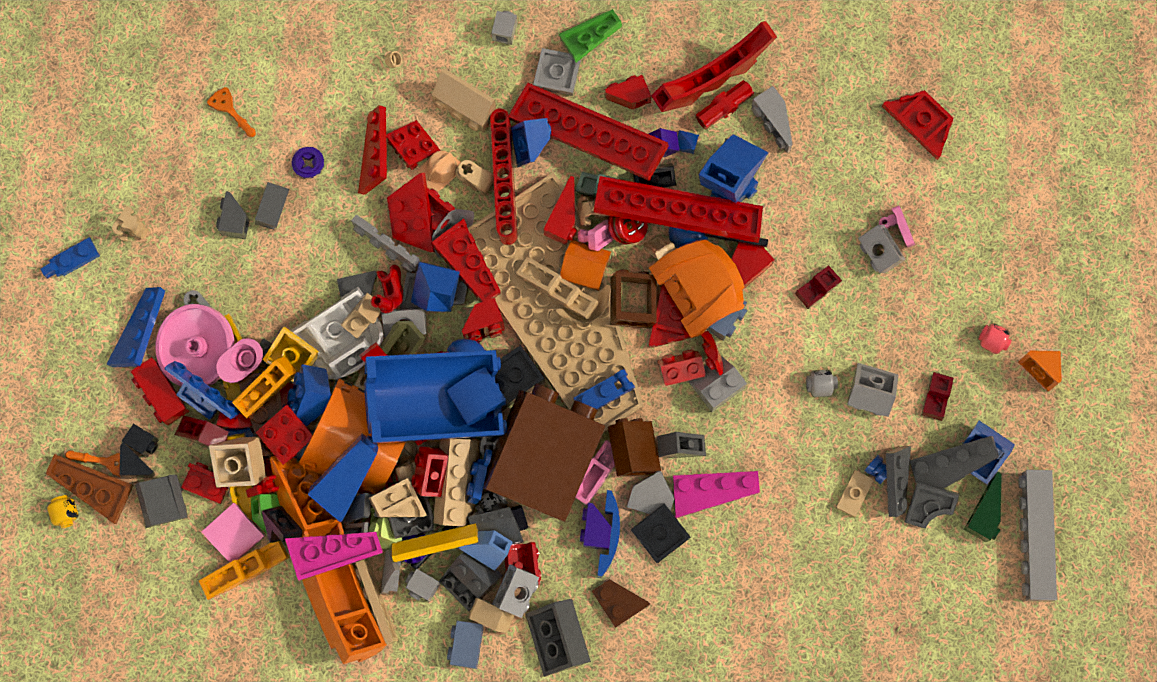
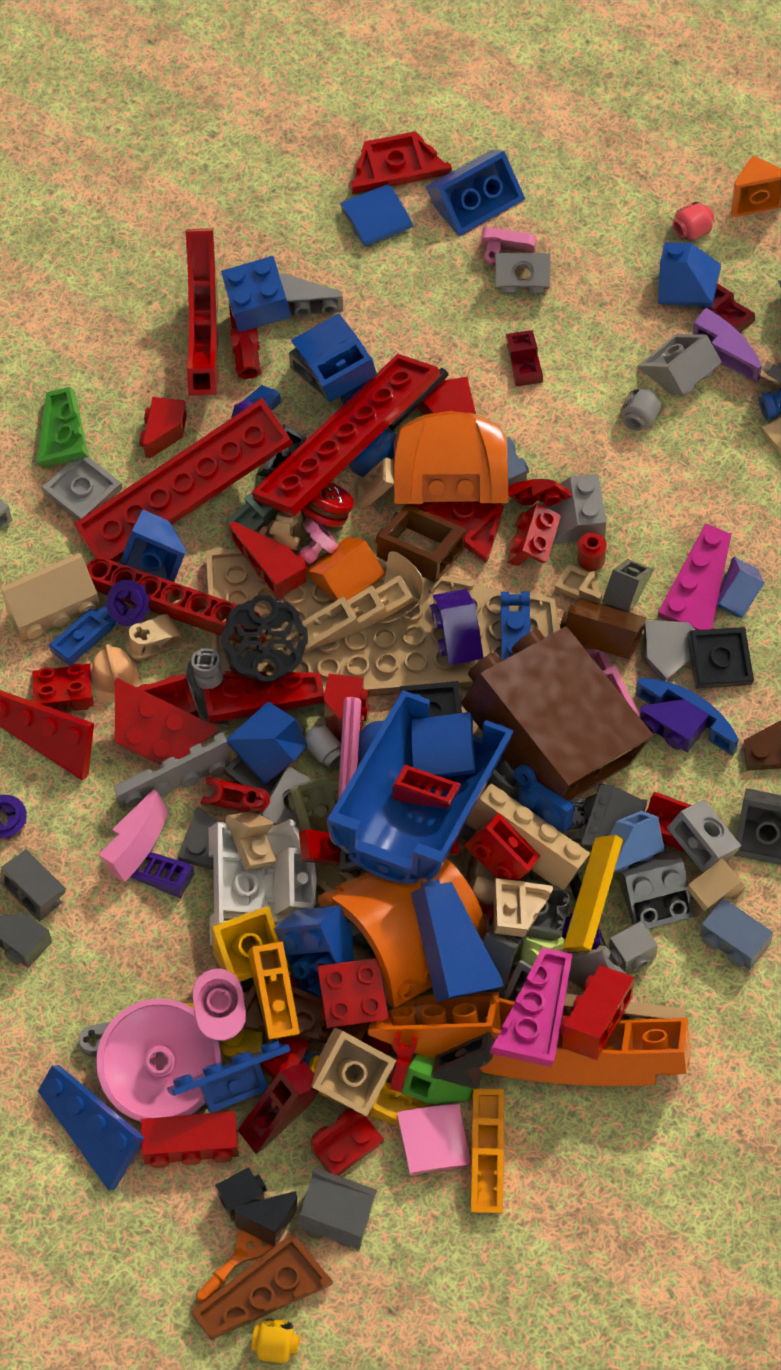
camera: 60 degrees left, 15 degrees down
(325, 290) = (175, 888): none -> dark purple slope
(333, 246) = (135, 837): none -> bright pink slope
(352, 588) = (597, 1012): none -> red brick
(441, 386) = (408, 784): none -> red slope
(451, 338) = (349, 741): none -> bright pink axle
(456, 135) = (82, 635): none -> blue hinge
(456, 322) = (324, 746): none -> white brick
(460, 226) = (207, 668): none -> light grey wheel
(478, 144) = (117, 607): none -> dark purple gear
(494, 230) = (281, 663): none -> black connector
(579, 355) = (457, 618): none -> dark purple brick
(664, 415) = (578, 584): none -> tan slope
(687, 415) = (591, 551): none -> red brick
(722, 518) = (739, 587): none -> blue slope
(752, 92) = (256, 294): none -> blue piece
(872, 131) = (376, 215): none -> blue slope
(906, 412) = (729, 344): none -> medium lavender slope
(929, 184) = (476, 191): none -> blue slope
(944, 358) = (687, 276): none -> blue slope

